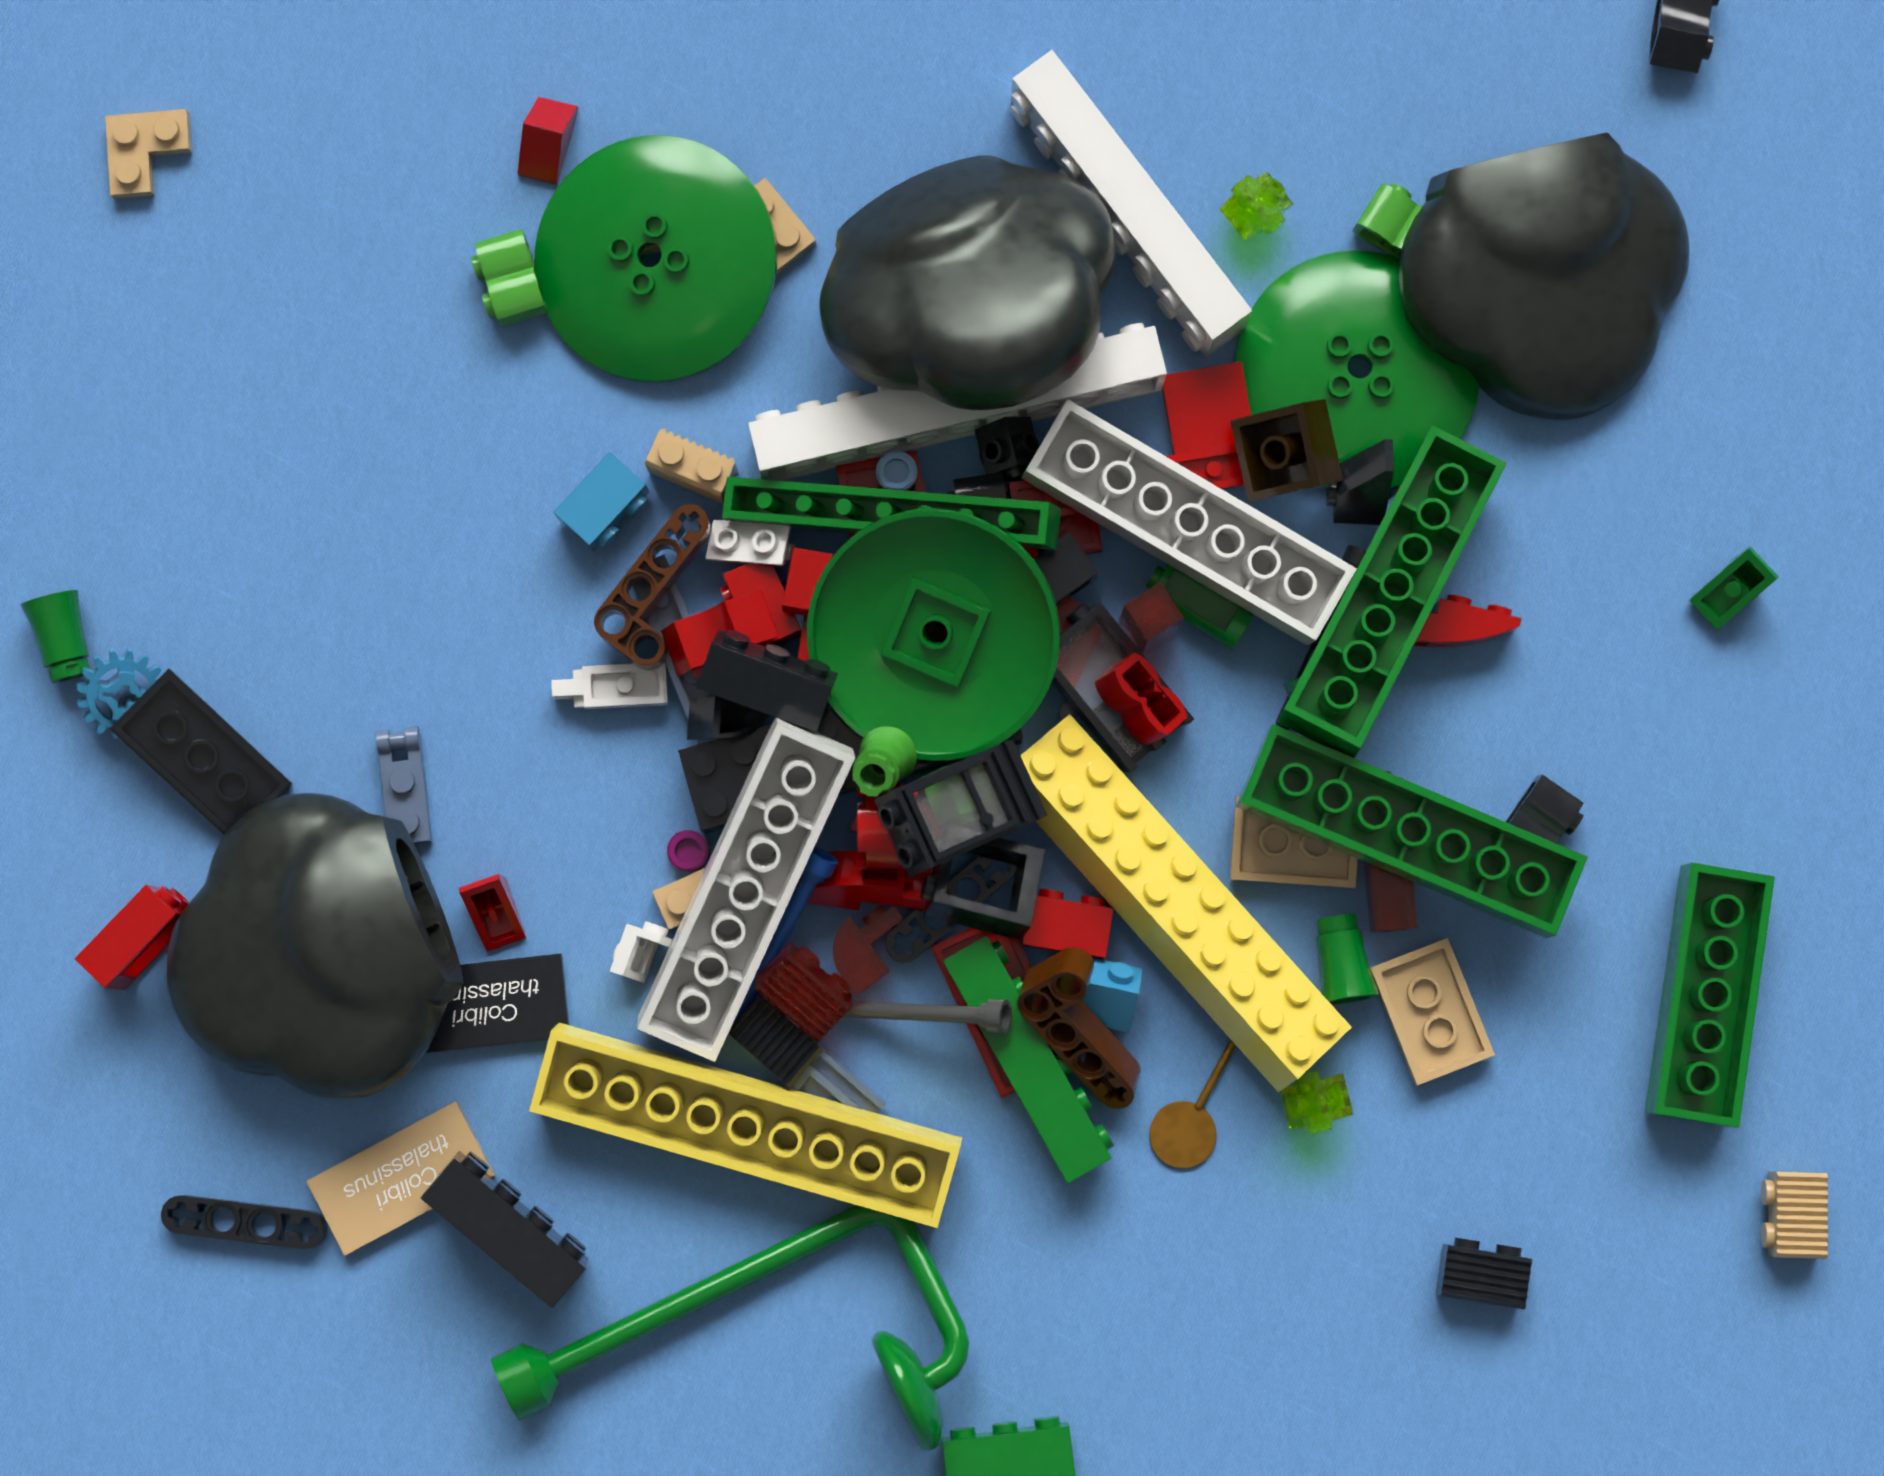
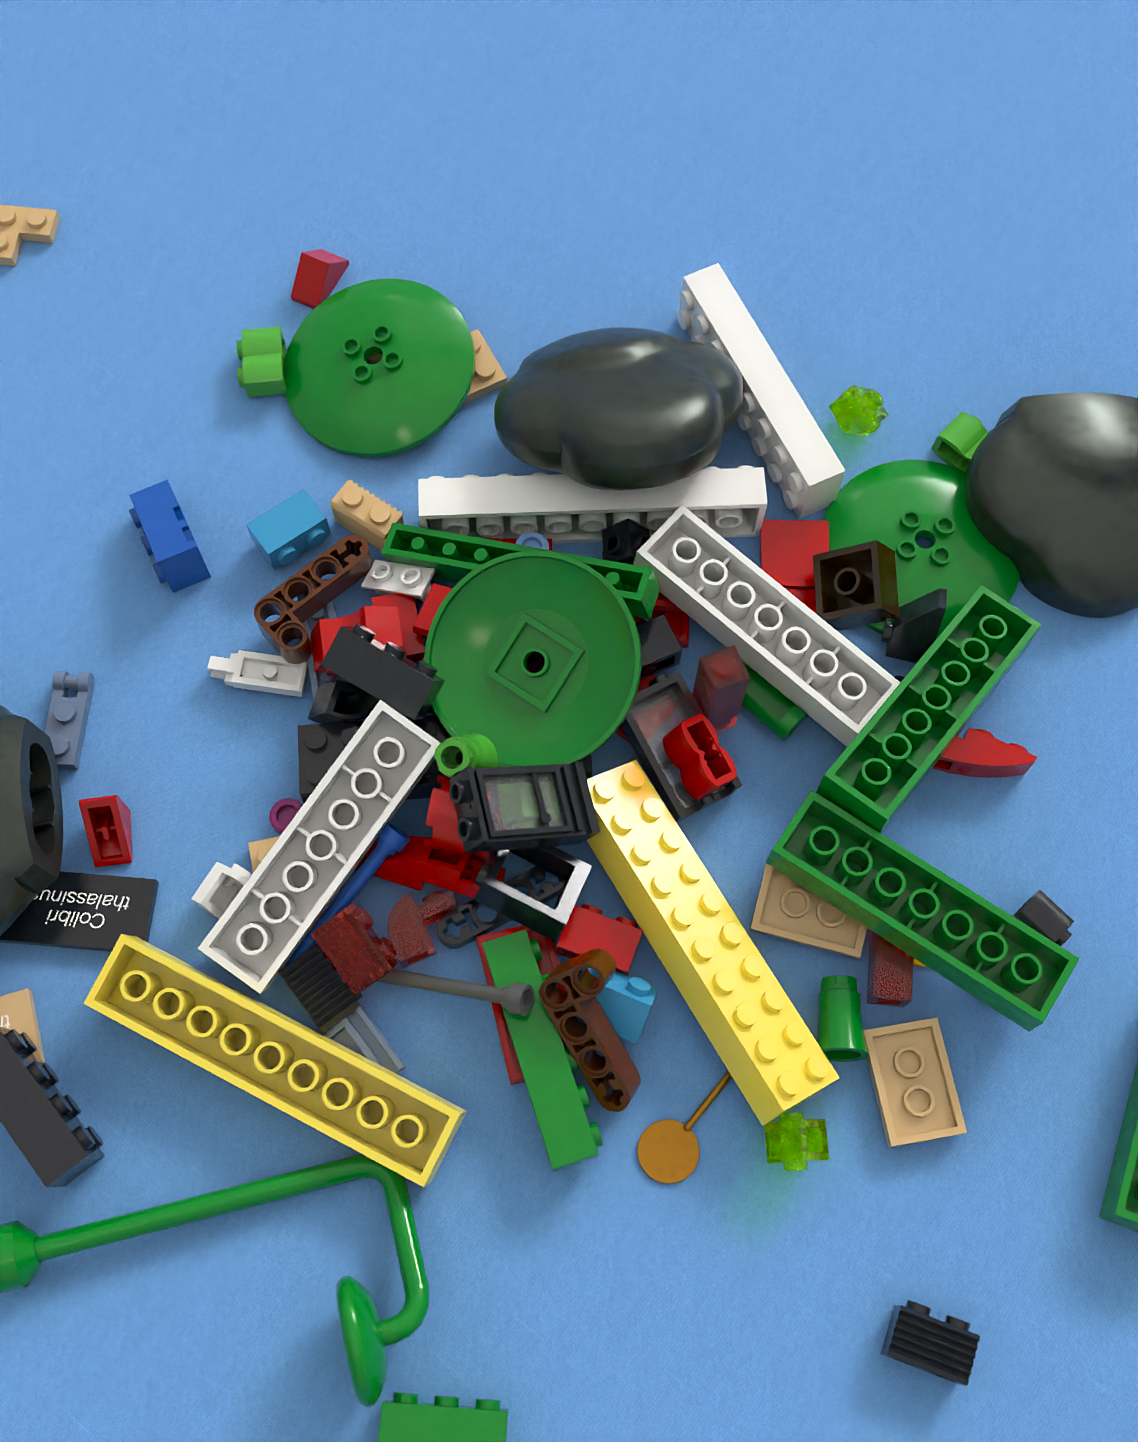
camera: 10 degrees right, 15 degrees down
(458, 537) = (168, 537): none -> blue wedge

